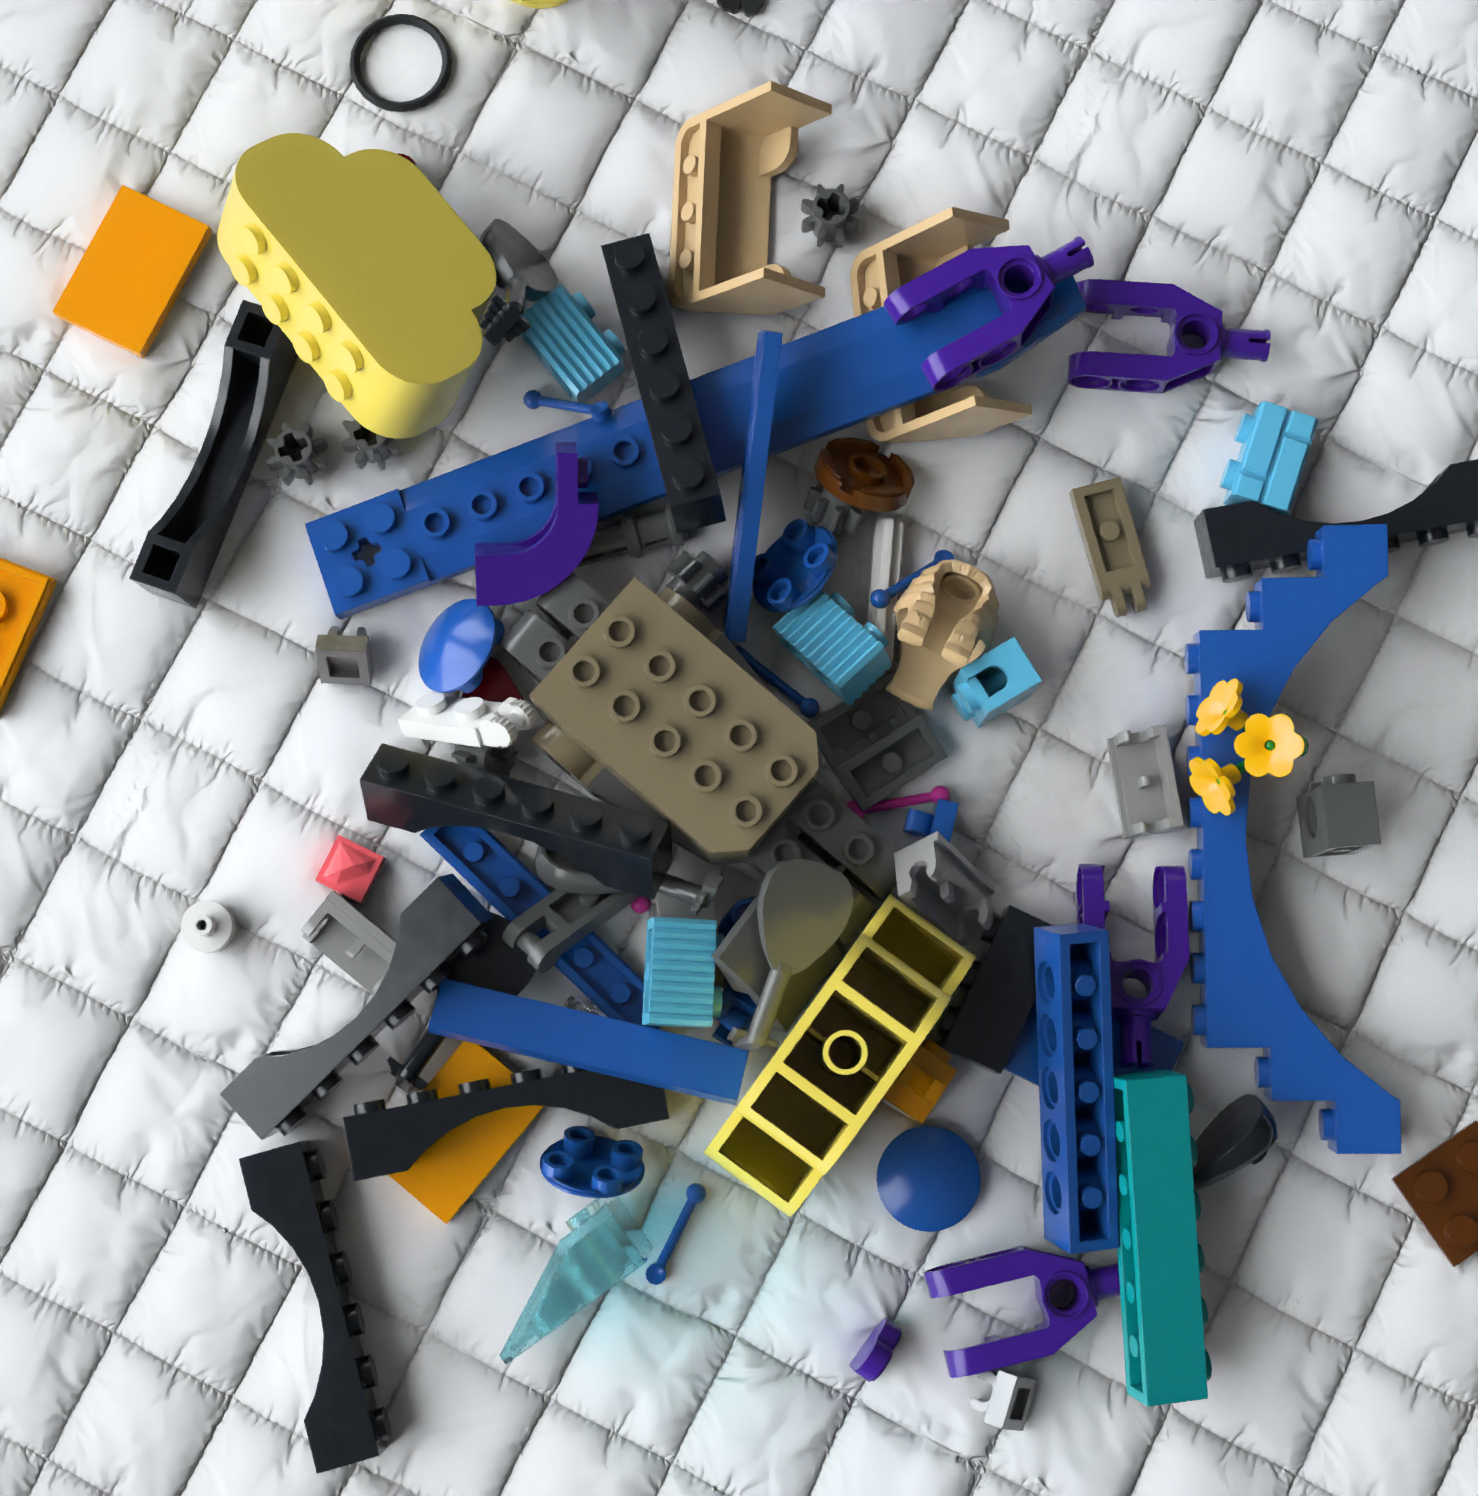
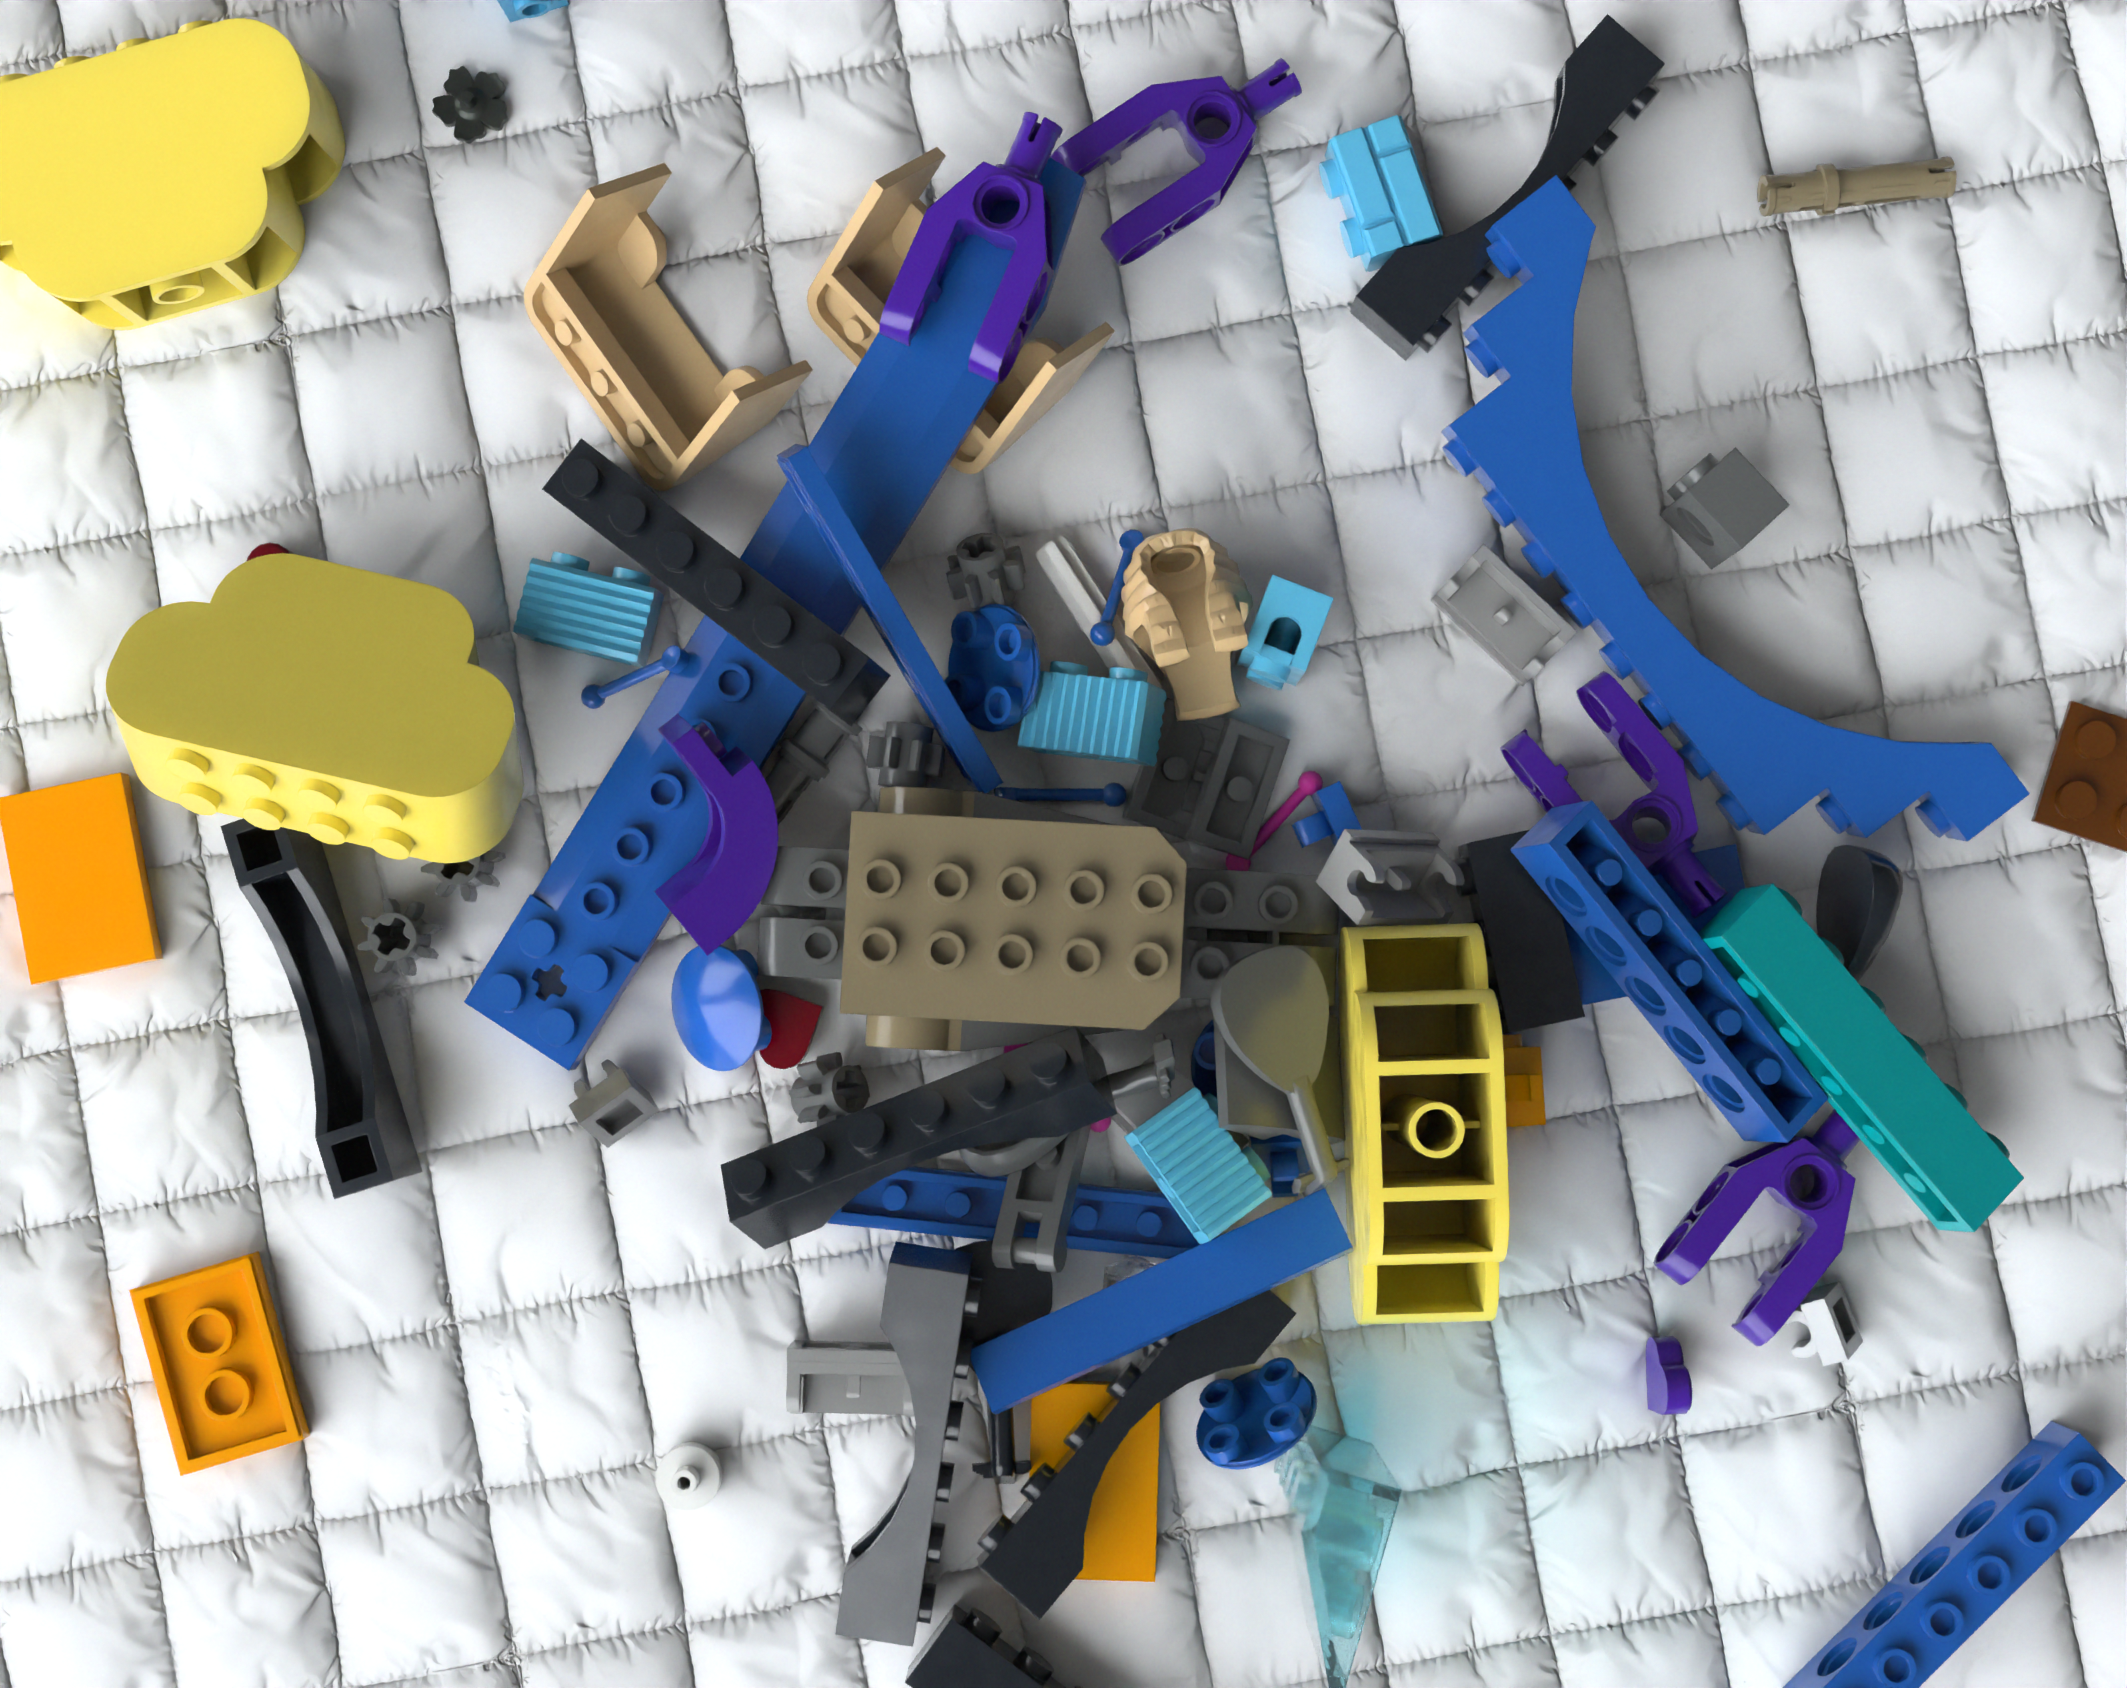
camera: 30 degrees left, 5 degrees up
(350, 869) = (785, 1309): coral tile -> none
(398, 19) = (151, 400): black tyre -> none
(467, 720) = (788, 1077): white hinge -> none
(523, 275) = (488, 580): black piece -> none
(656, 1272) = (1374, 1361): blue hinge -> none
(828, 201) = (731, 275): dark grey gear -> none
(862, 476) = (990, 520): reddish brown tile -> none
(928, 1178) = (1588, 1170): blue dish -> none
(1111, 544) = (1288, 399): dark tan hinge -> none
(1266, 745) = (1611, 503): yellow plant -> none

